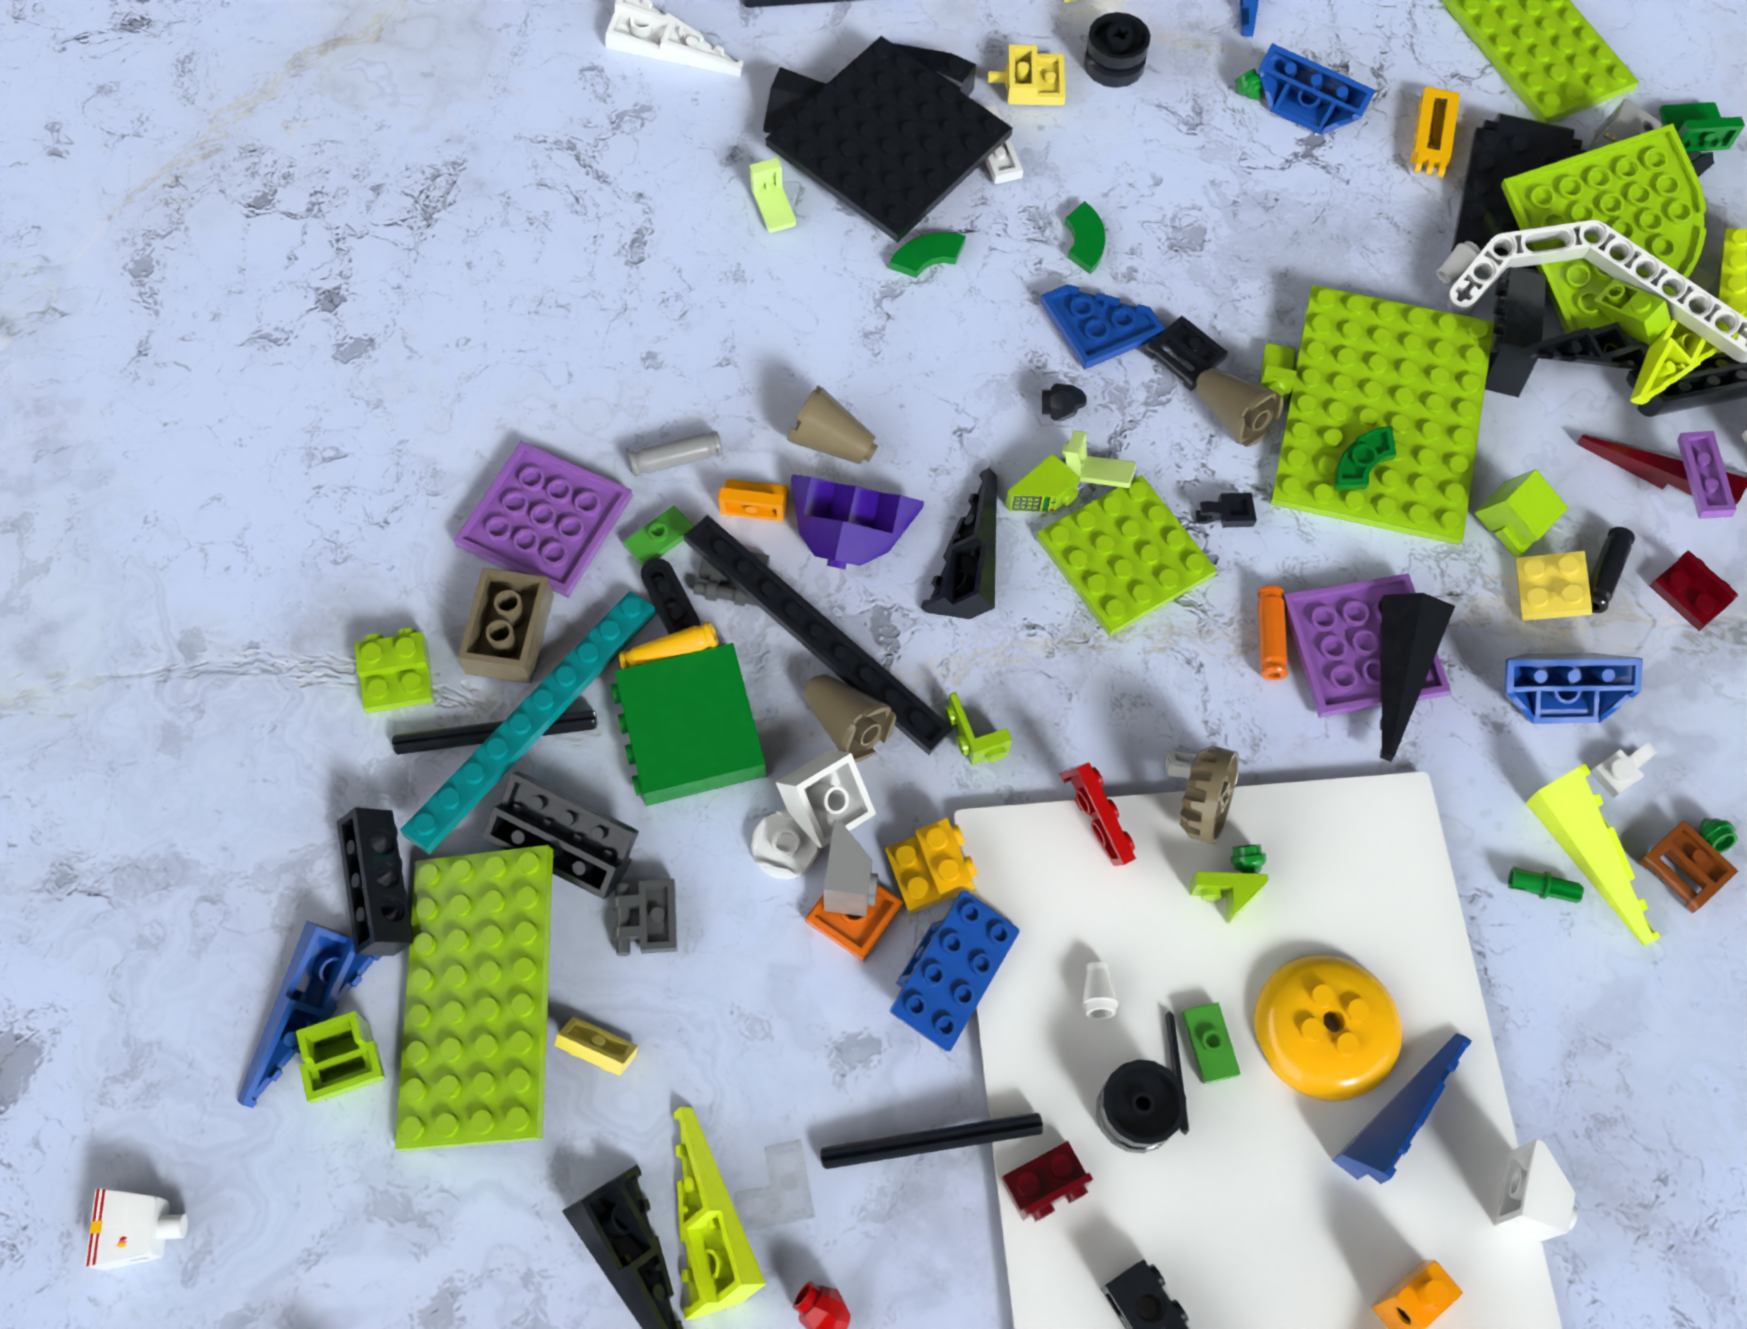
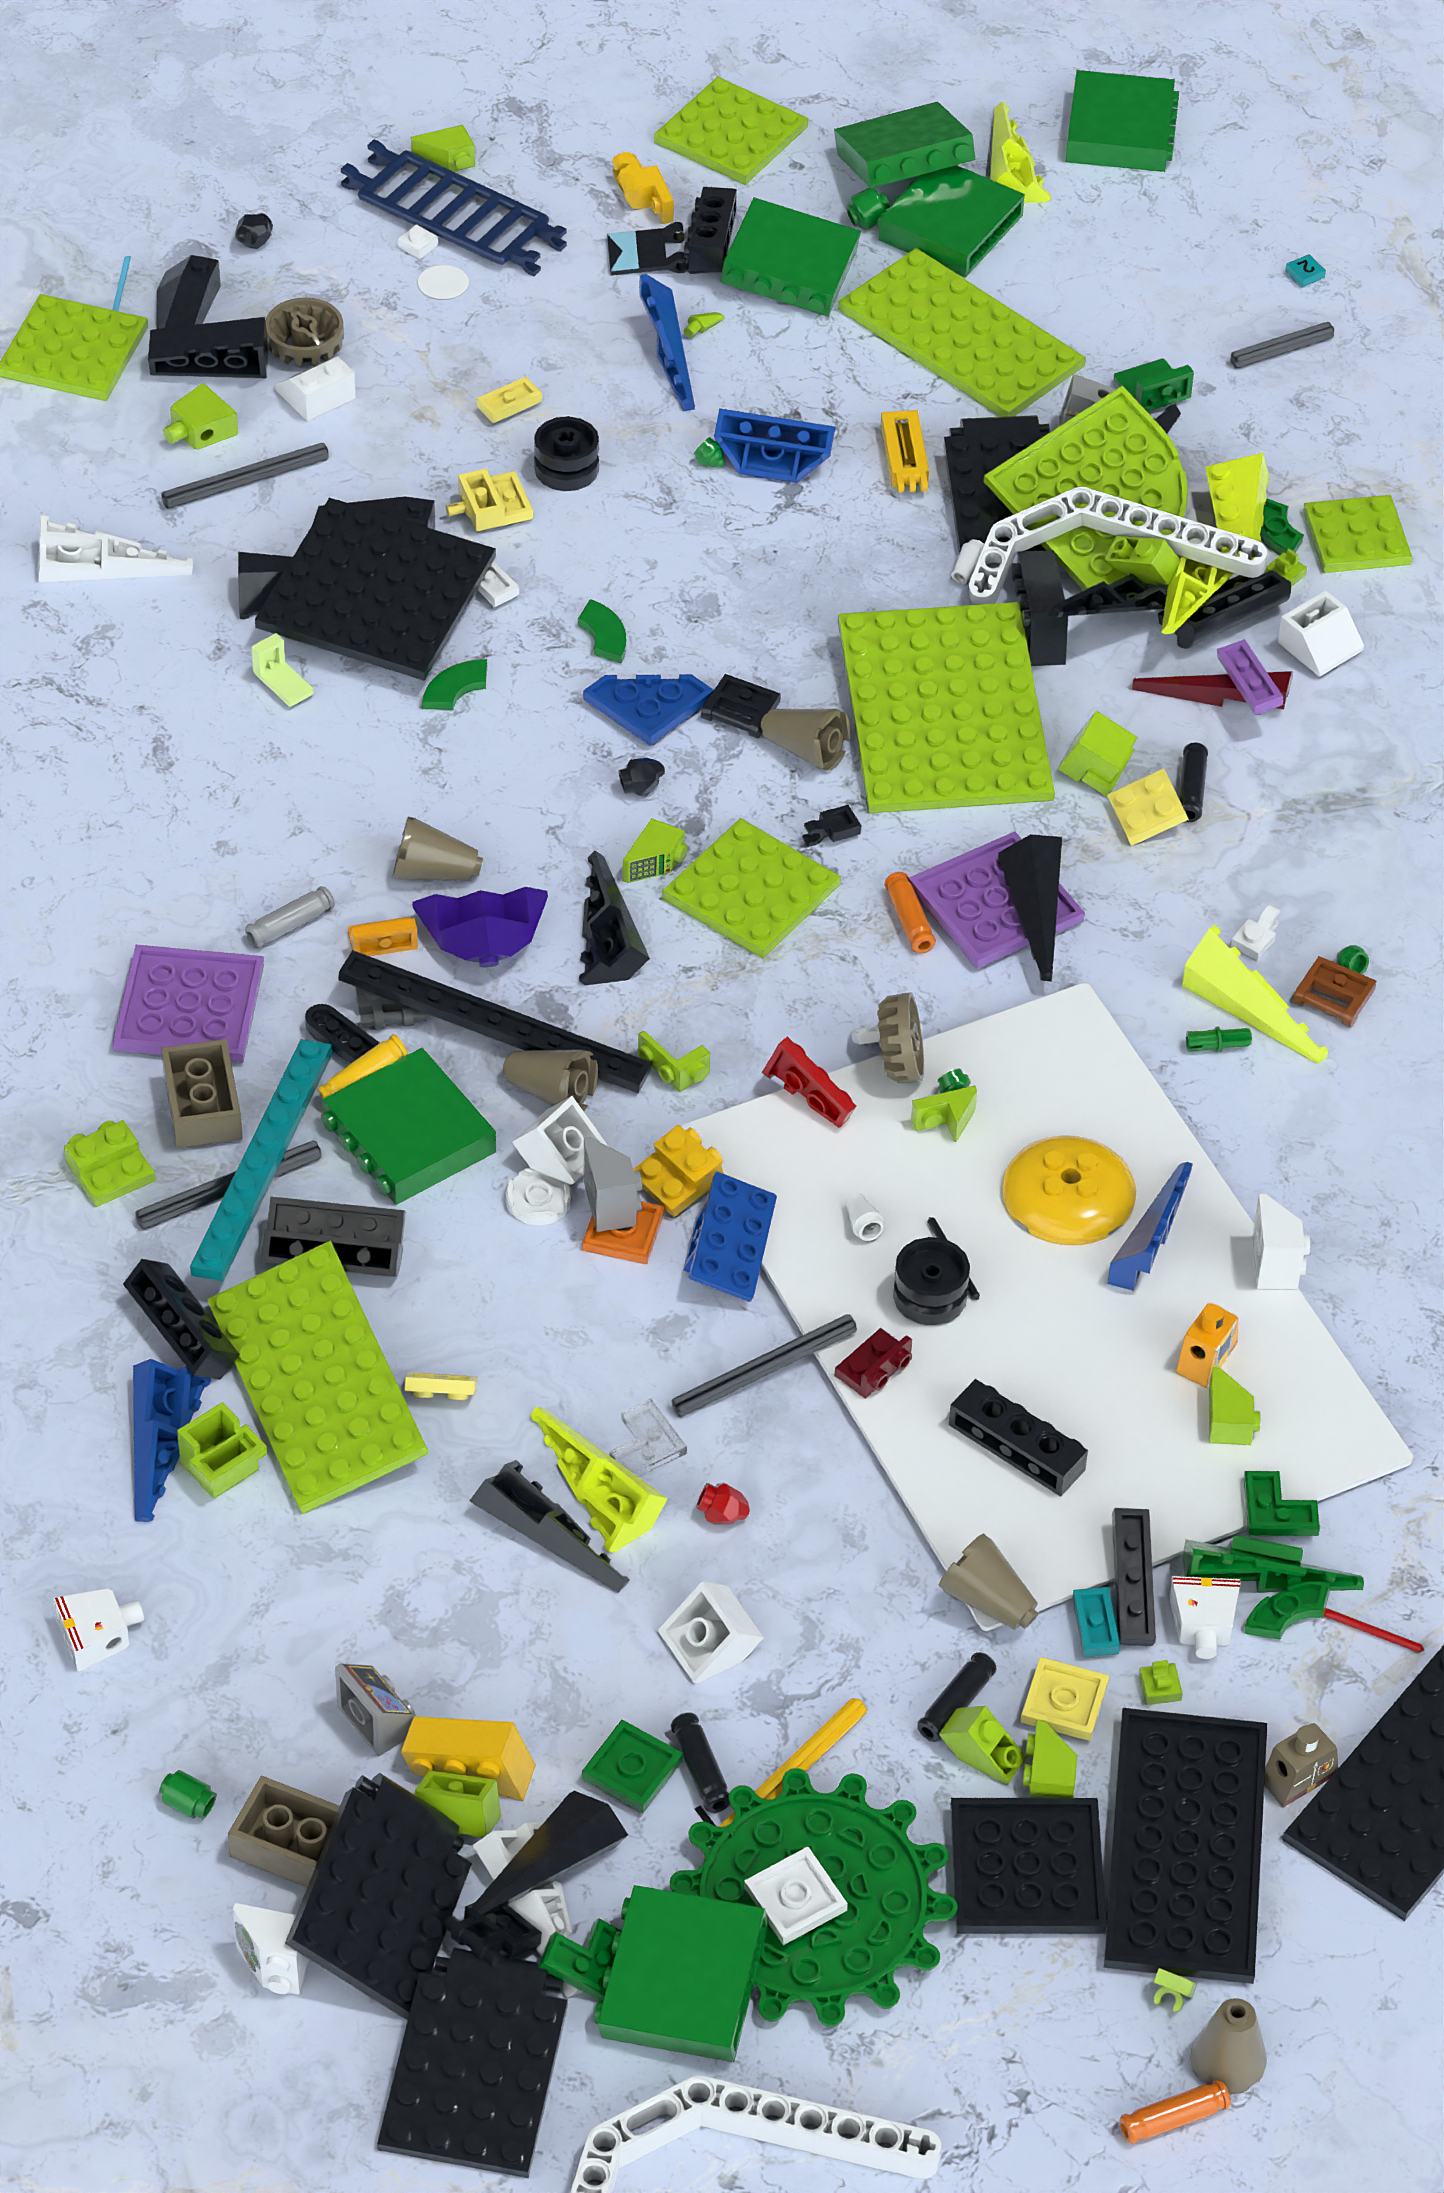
camera: 20 degrees left, 15 degrees down
(656, 915) = (448, 1277): dark grey plate -> none
(658, 536) = (305, 989): bright green plate -> none
(1096, 469) = (696, 824): yellowish green bracket -> none
(1210, 1043) = (974, 1228): bright green plate -> none
(1277, 369) = (832, 694): lime bracket -> none
(1362, 456) = (939, 745): green tile -> none
(1571, 685) = (1188, 880): blue wedge -> none
(1694, 590) = (1274, 778): dark red bracket -> none

